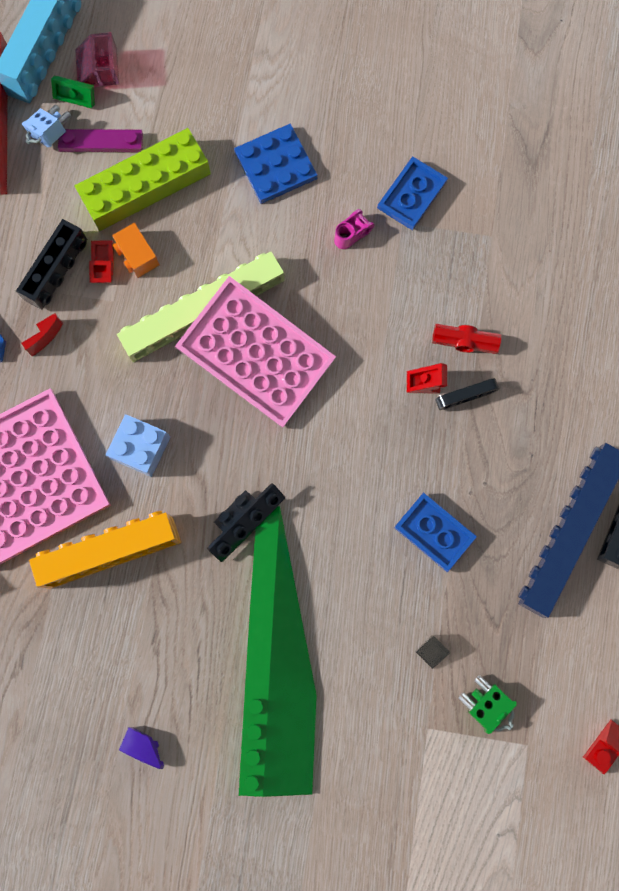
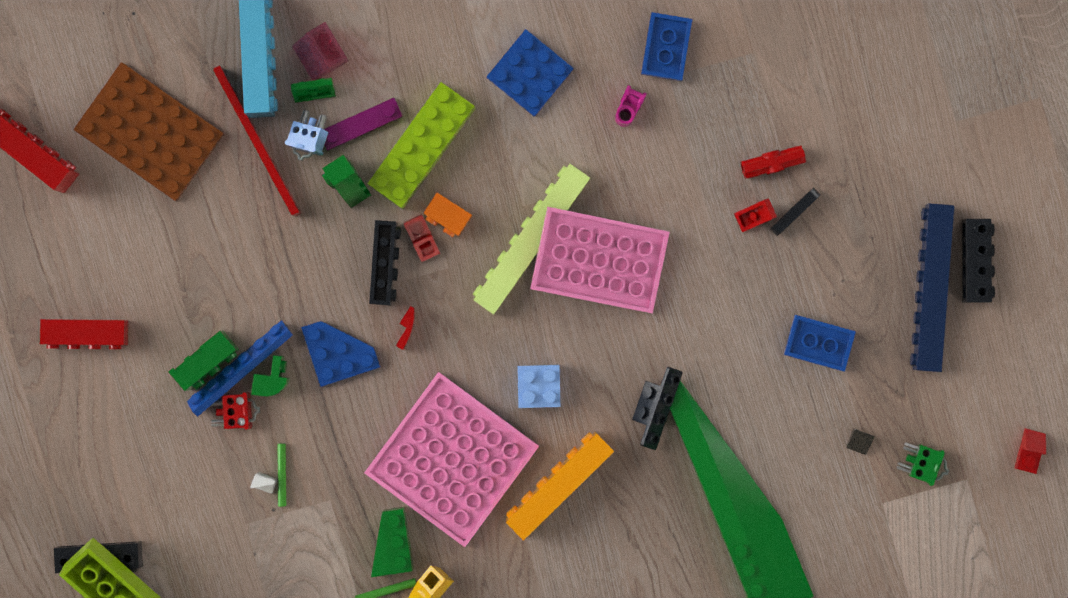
camera: 30 degrees left, 10 degrees up
(54, 171) = (345, 179): none -> green wedge

